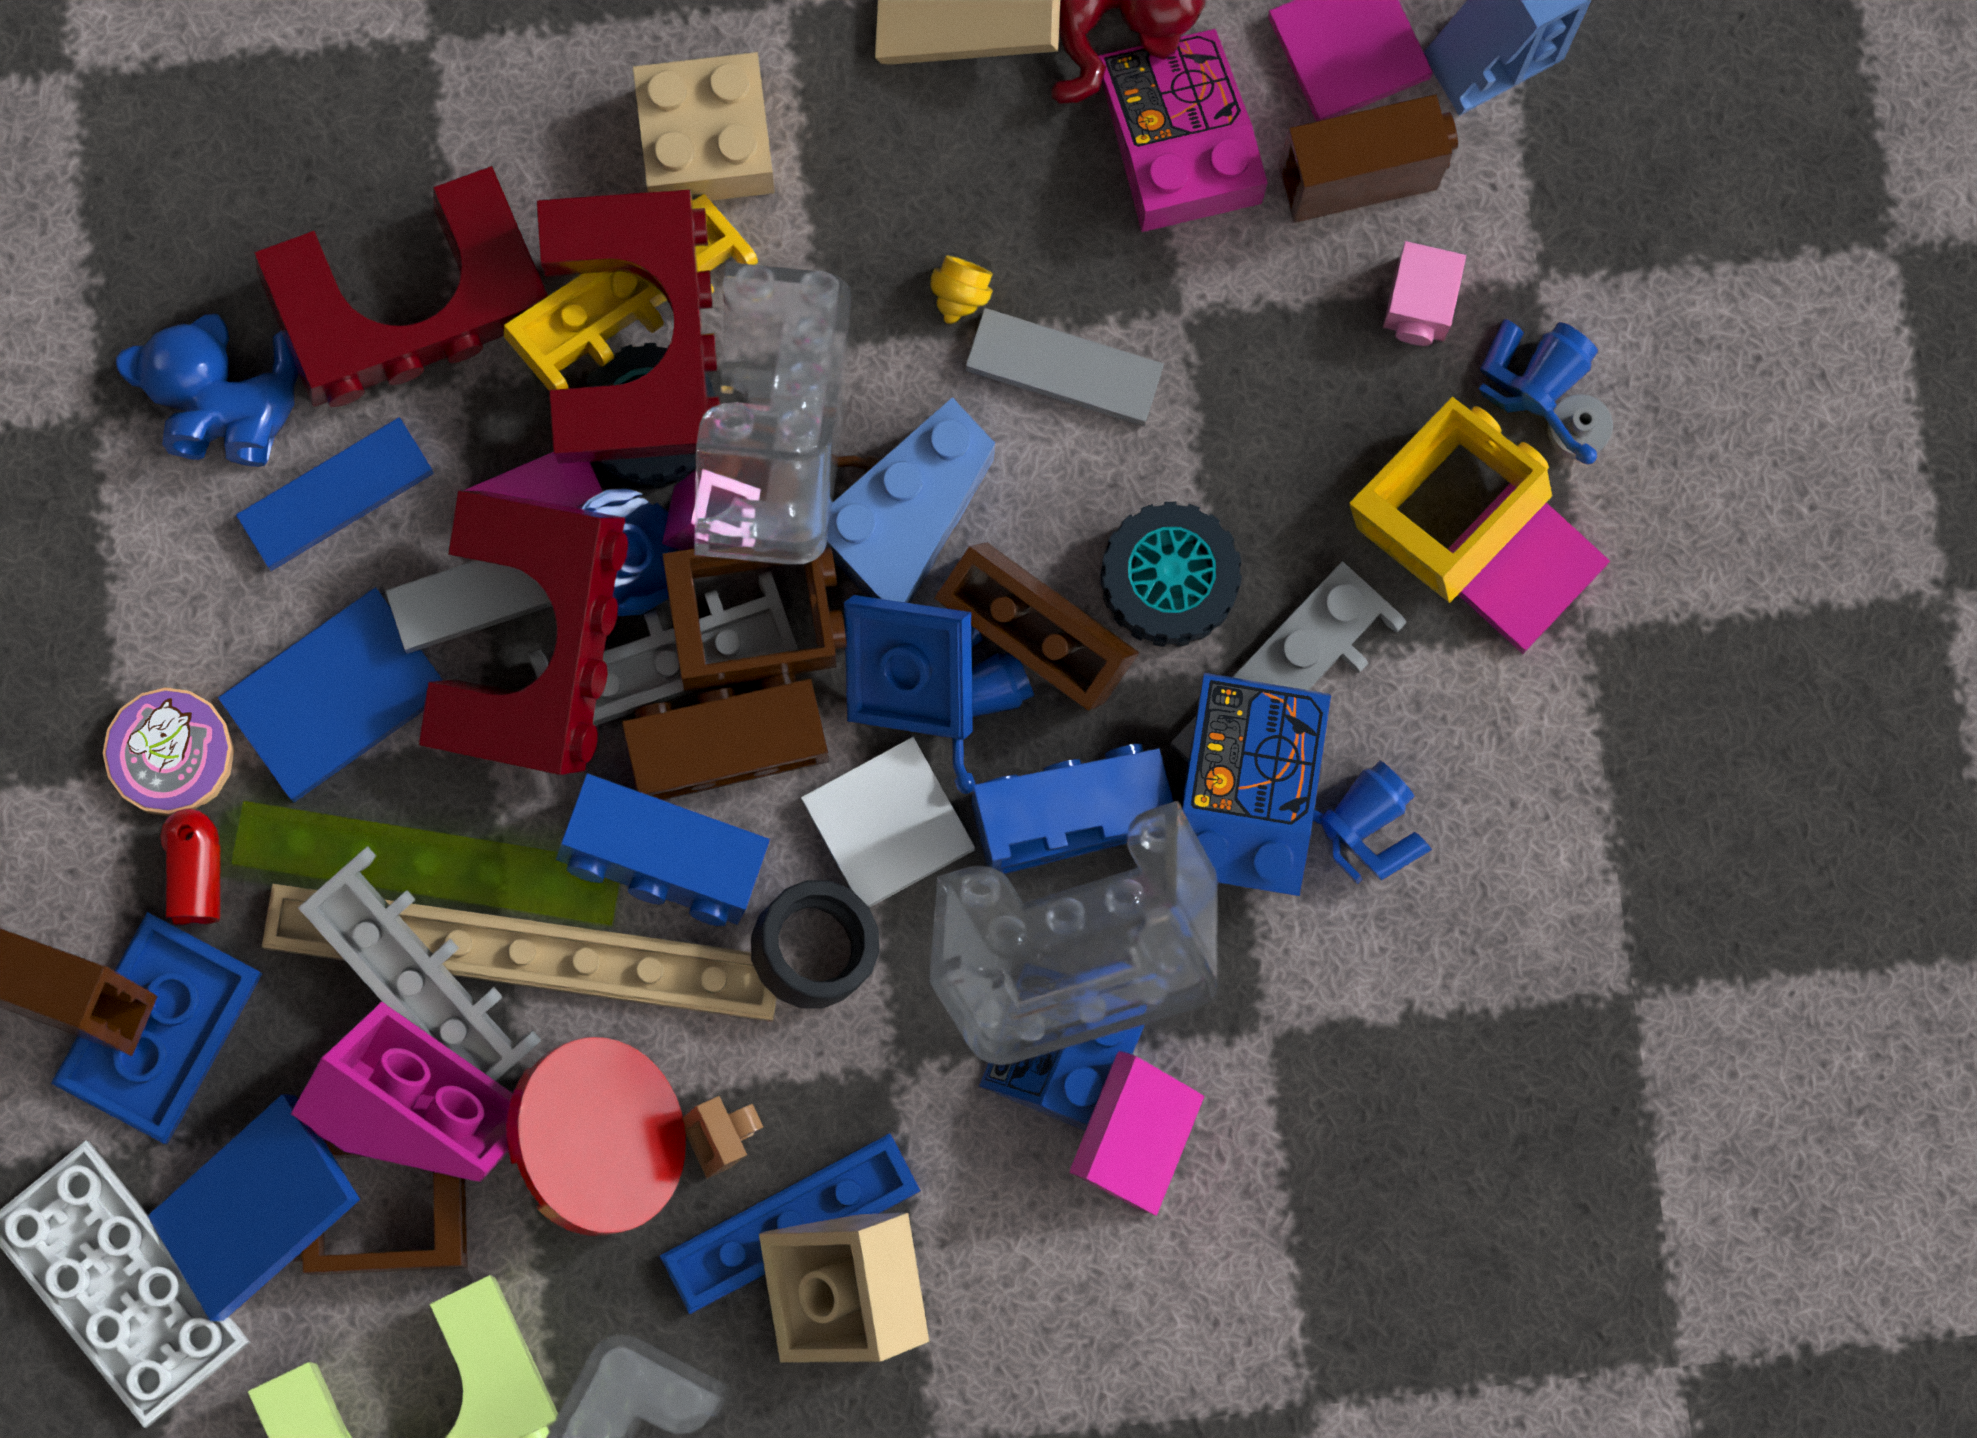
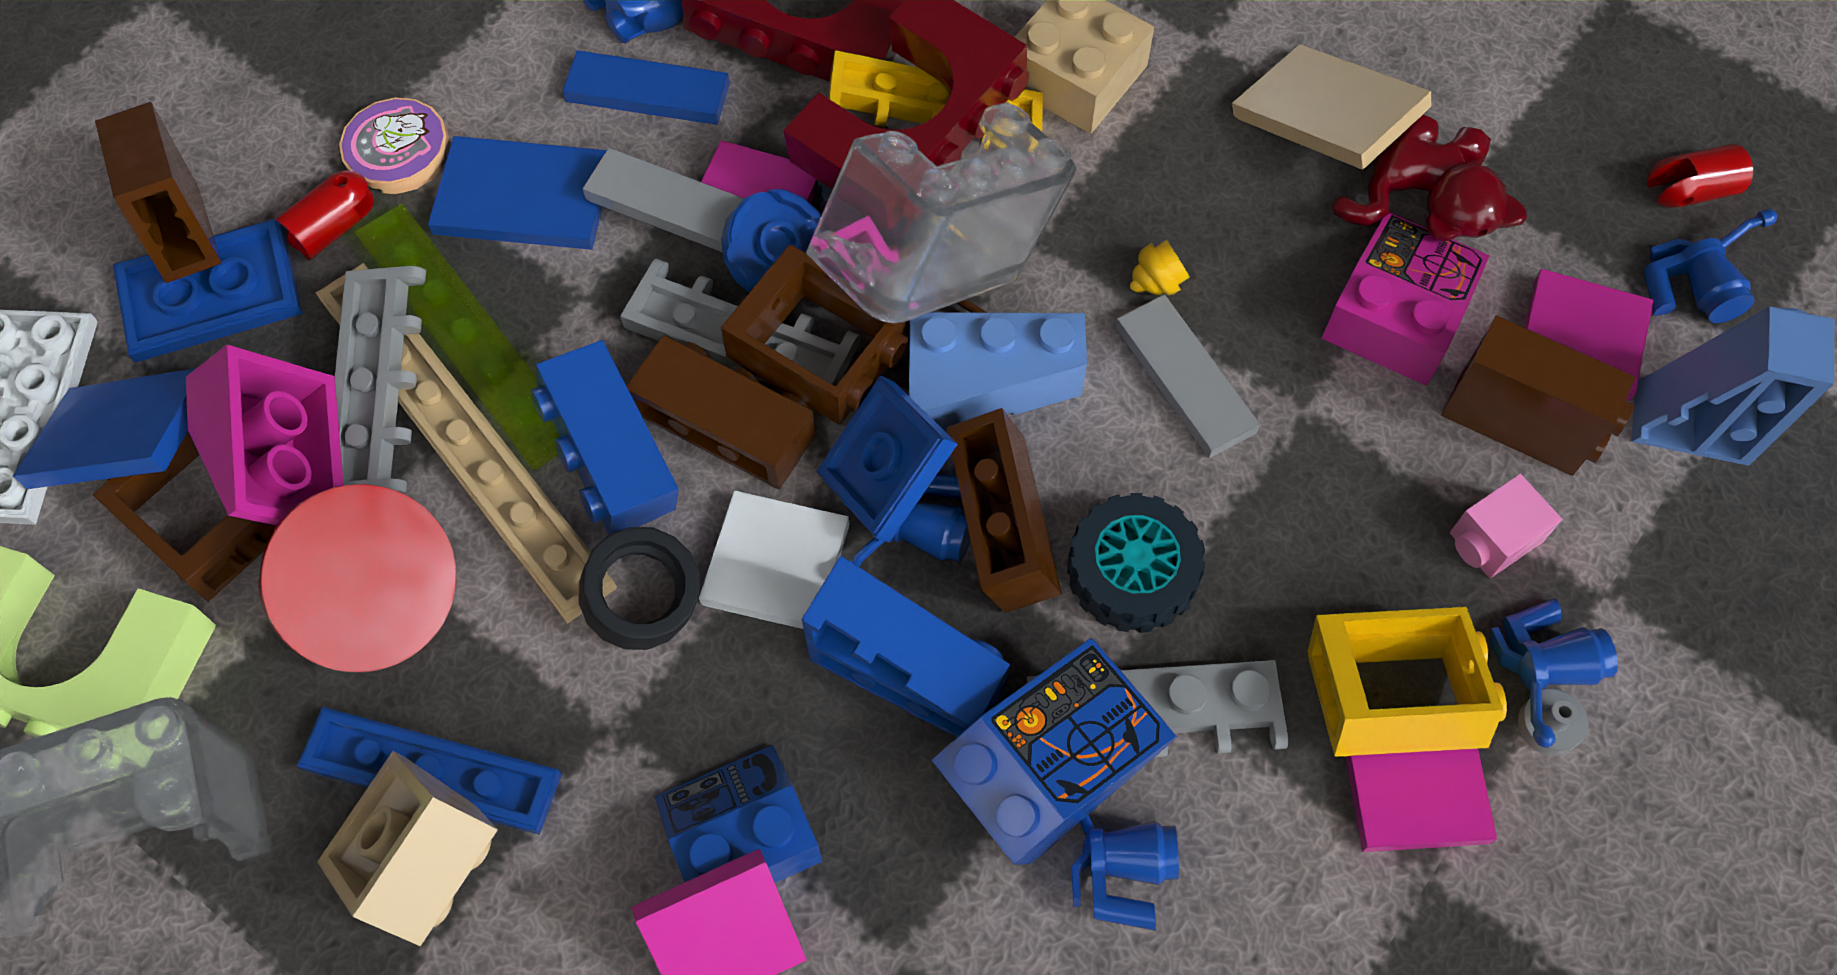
camera: 50 degrees right, 15 degrees down
(576, 564) = (722, 207): dark red arch -> none
(718, 1136) = (447, 660): medium nougat tile -> none
(1080, 958) = (758, 741): clear windscreen -> none

